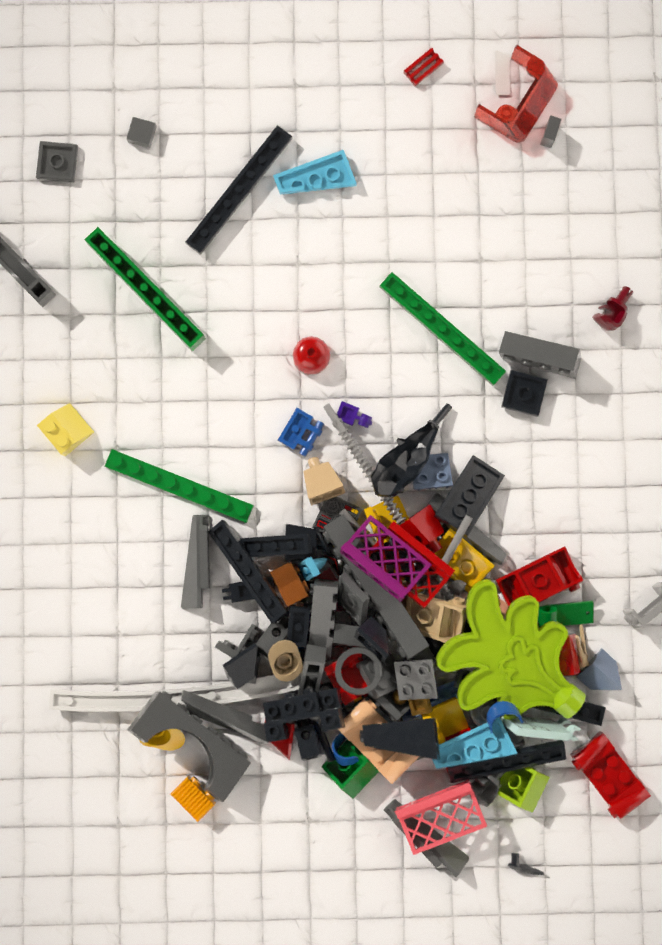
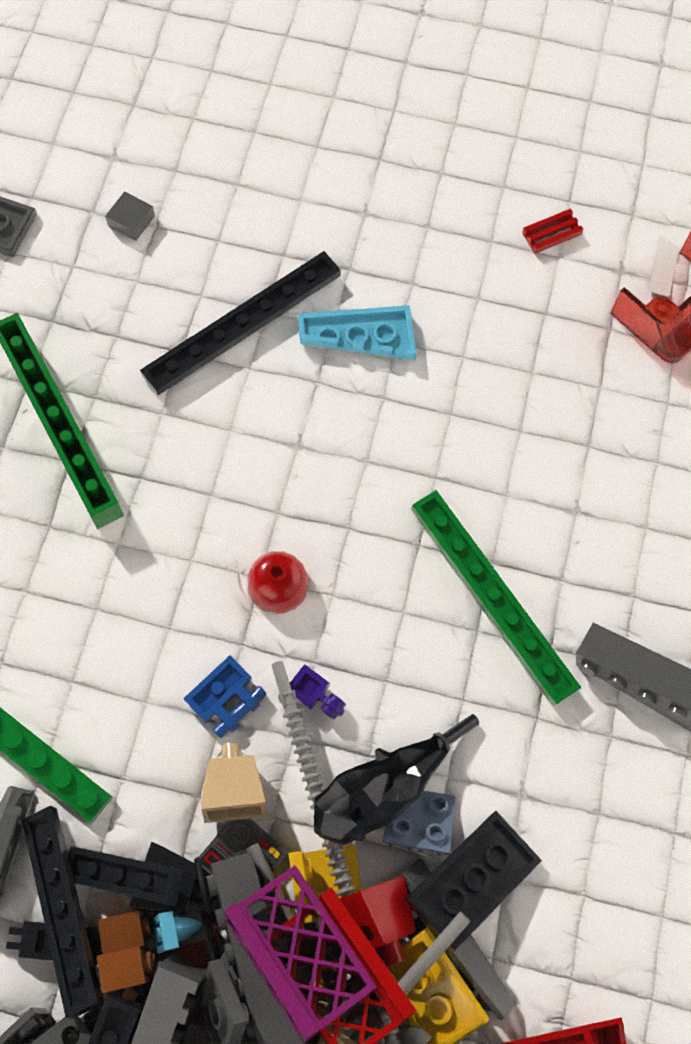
camera: 15 degrees right, 15 degrees down
(524, 393) = (602, 731): black plate -> none

